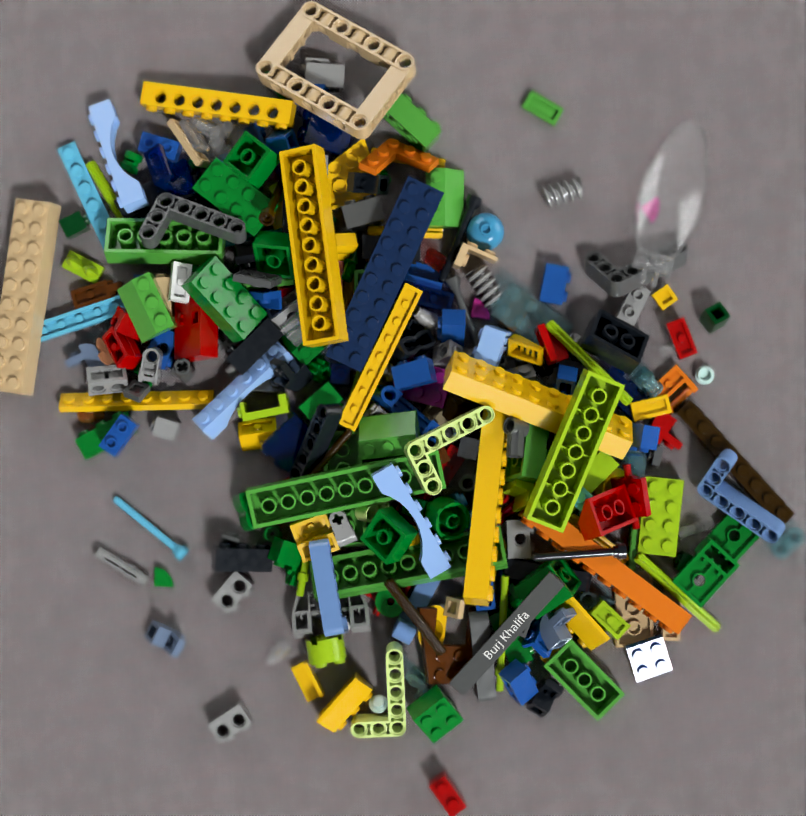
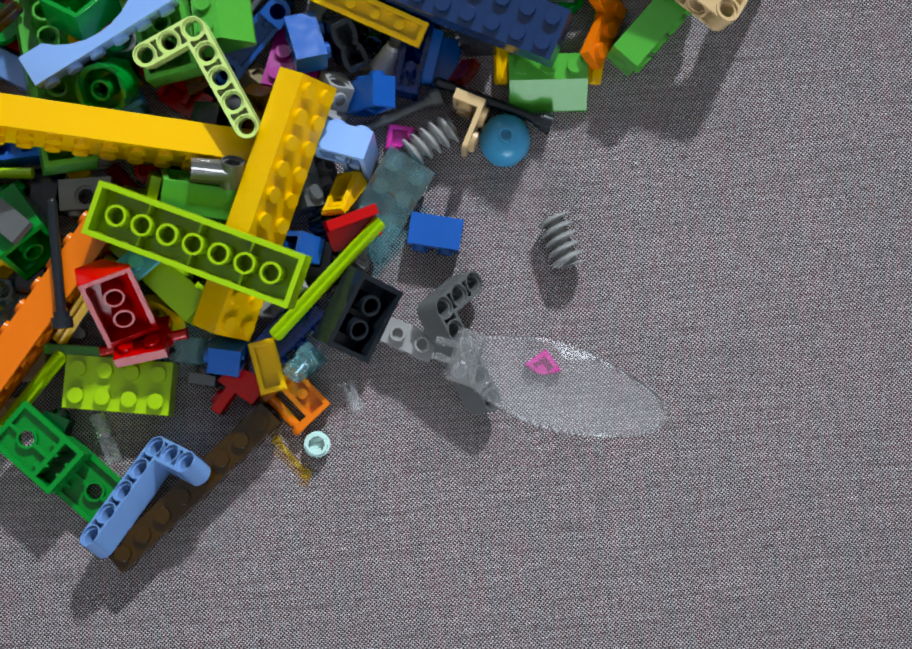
camera: 90 degrees right, 5 degrees down
(542, 108) = (675, 212): bright green tile -> none
(664, 297) = (422, 385): yellow plate -> none
(681, 338) = (365, 407): red panel -> none
(714, 317) = (395, 453): dark green brick -> none
(724, 384) = (305, 473): none -> clear yellow hinge
(788, 544) = (85, 568): clear light blue plate -> none

